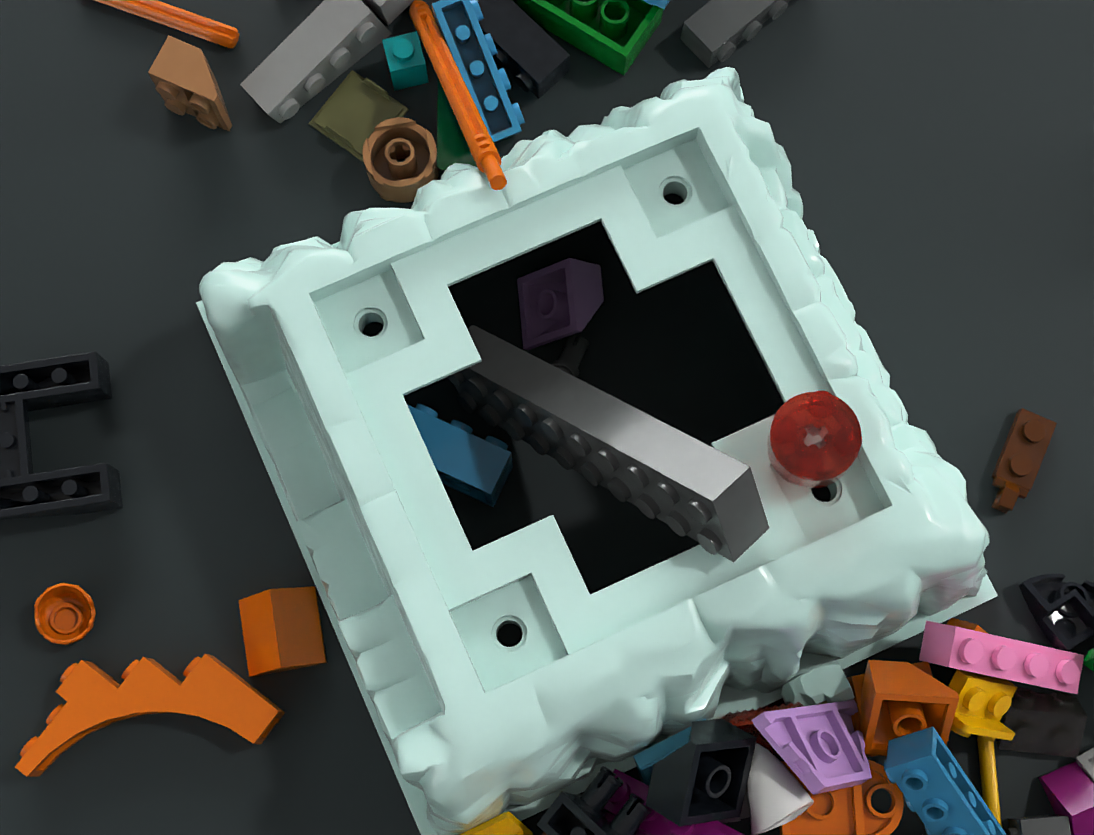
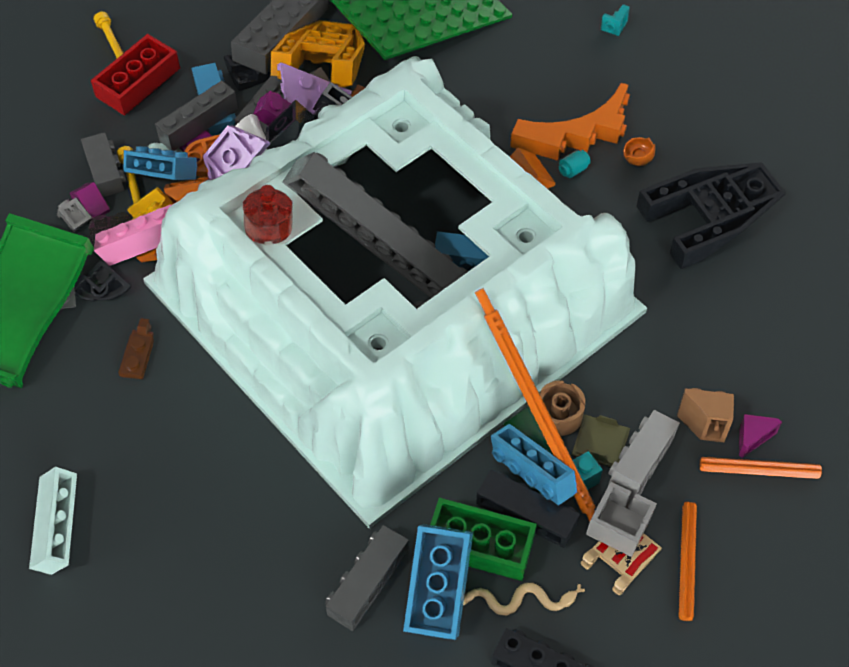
camera: 165 degrees right, 20 degrees down
(134, 52) = (756, 431): none -> magenta slope
(190, 623) = (574, 163): none -> teal brick

